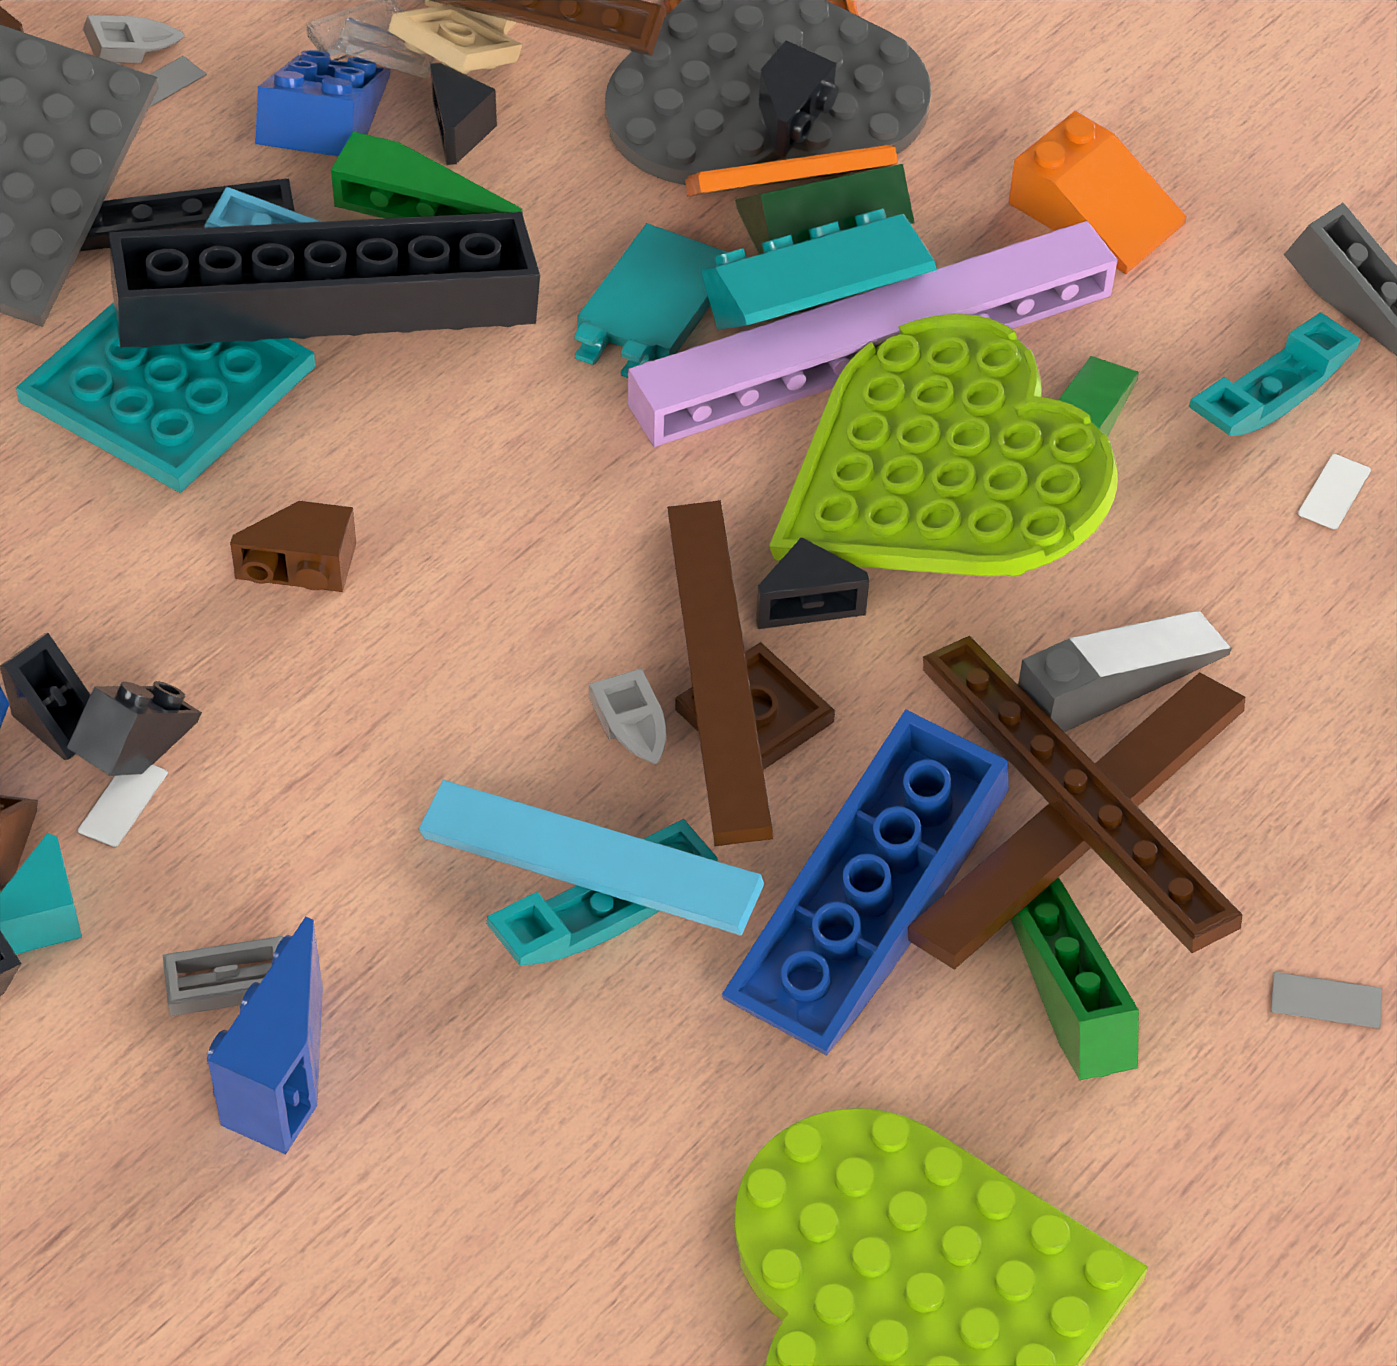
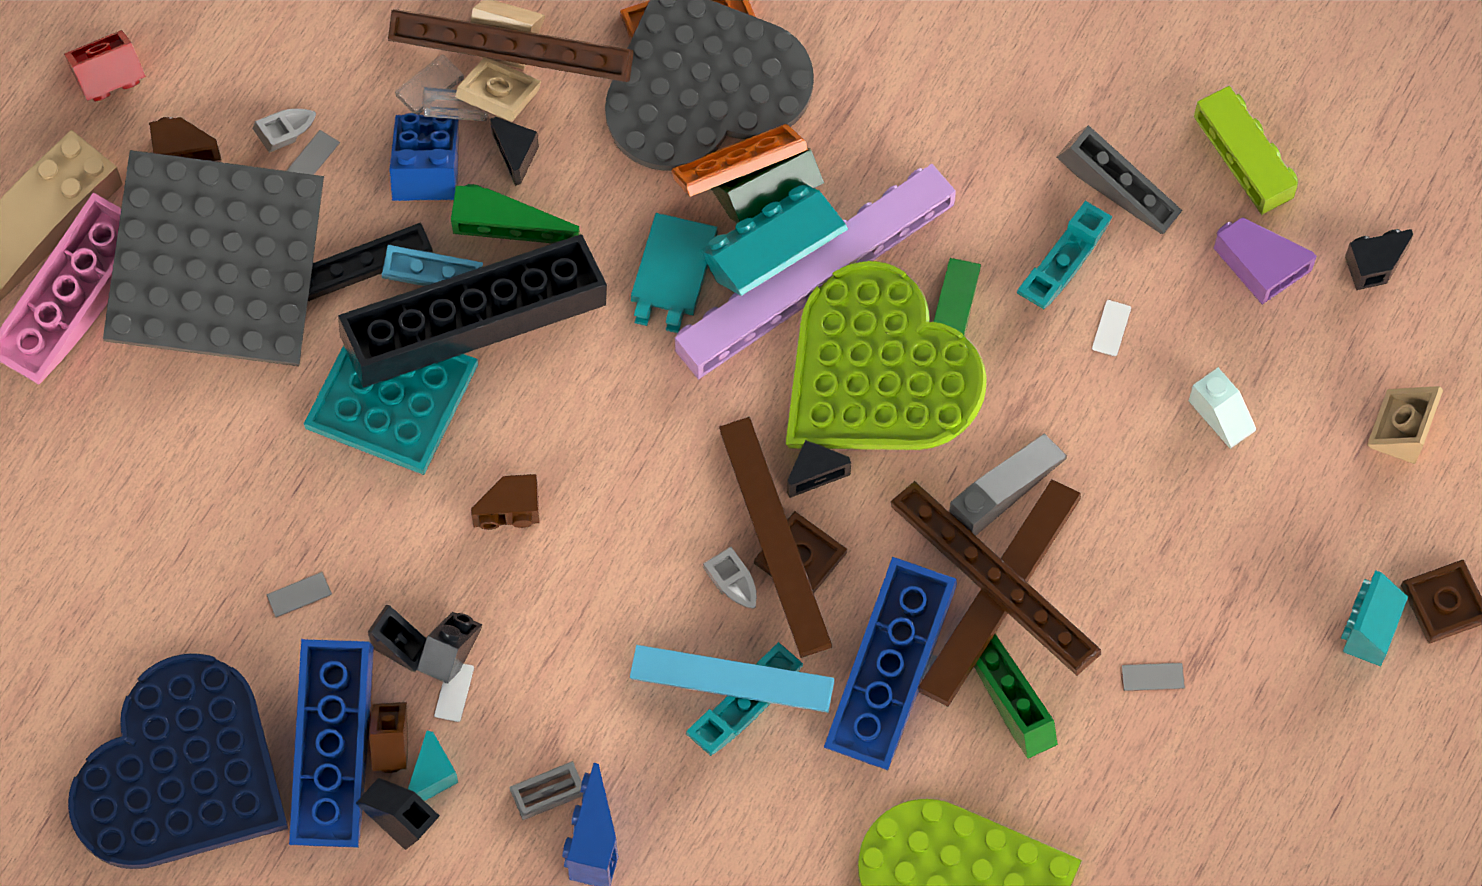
camera: 10 degrees left, 15 degrees up
(794, 93) = (727, 100): black slope -> none
(1091, 176) = (932, 131): orange slope -> none

